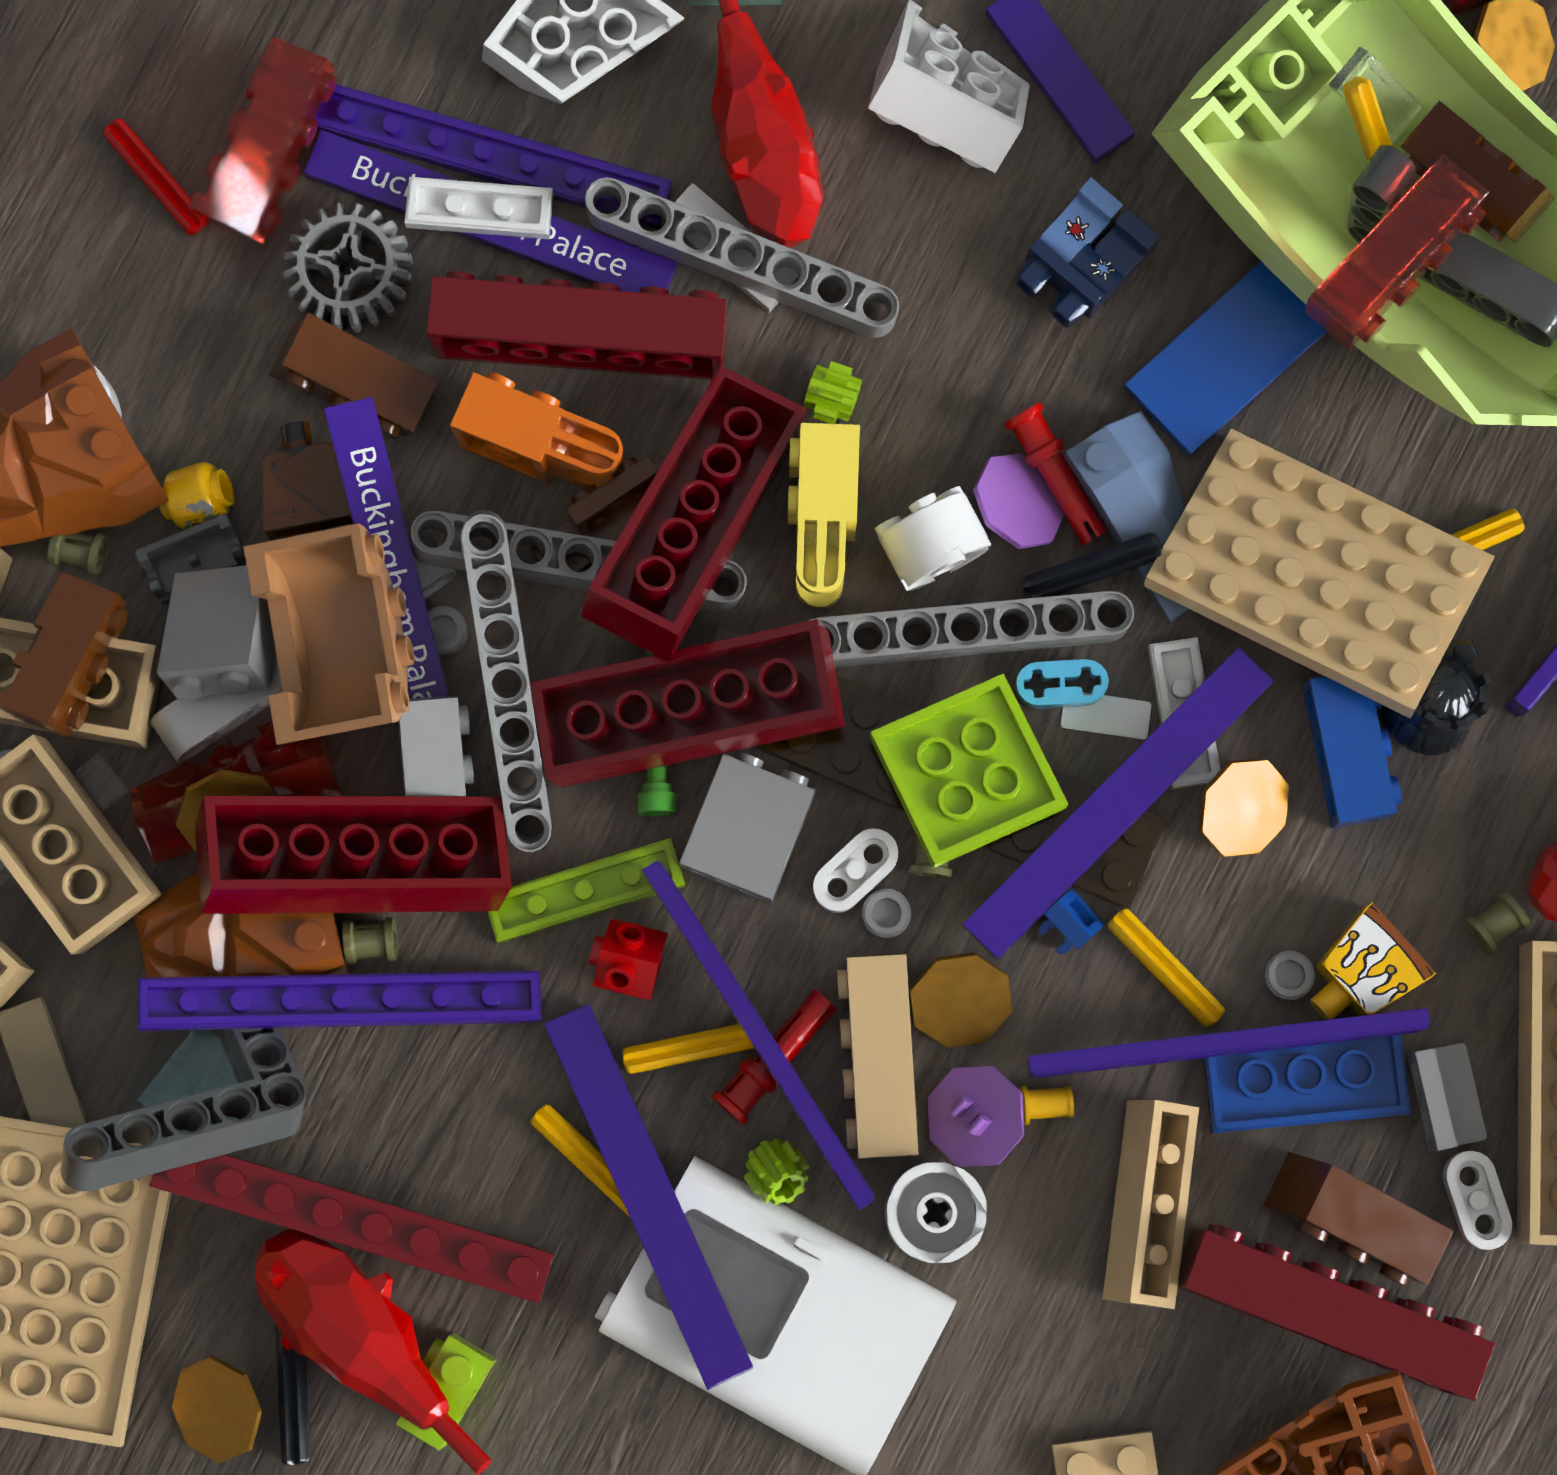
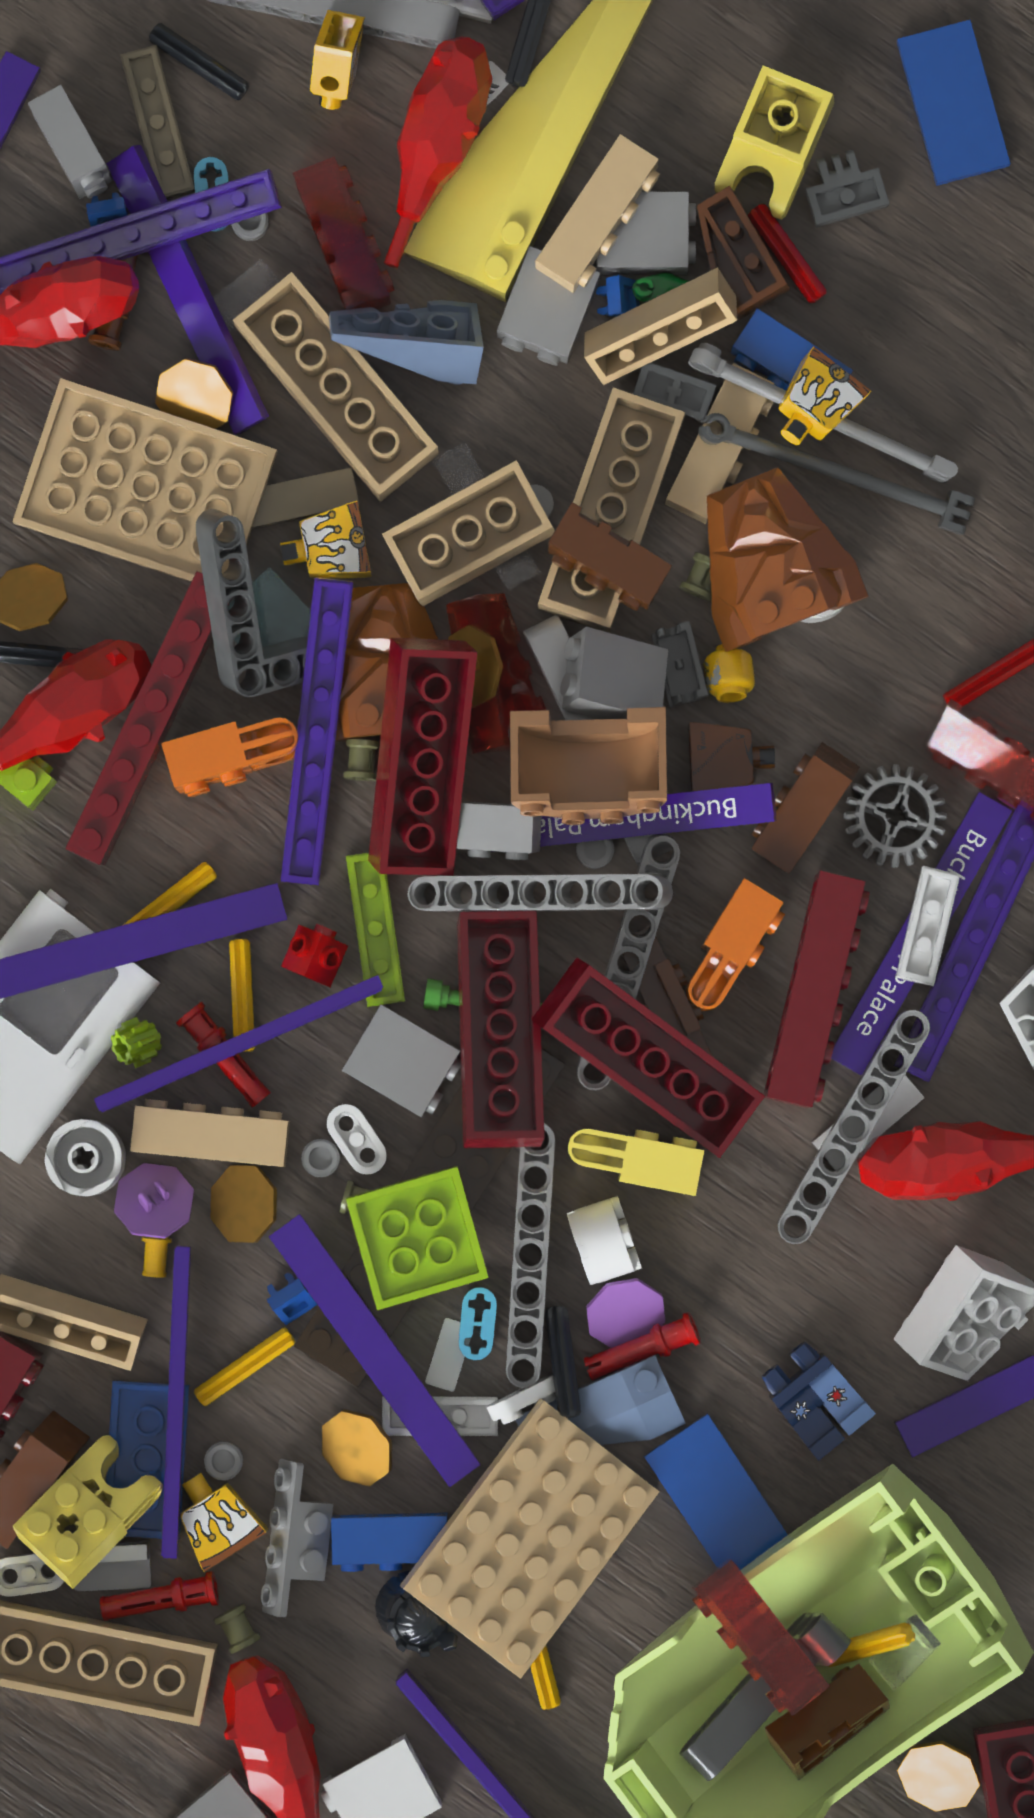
camera: 100 degrees right, 5 degrees up
(96, 1022) = (331, 544): none -> torso
(384, 1109) = (228, 754): none -> orange brick
(832, 392) = (734, 1181): lime gear -> none
(1157, 622) = (510, 1406): none -> white plate
(1371, 866) = (296, 1541): none -> light grey bracket
(1380, 1124) = (95, 1508): none -> light yellow brick
(1468, 1004) = (179, 1594): none -> red pin

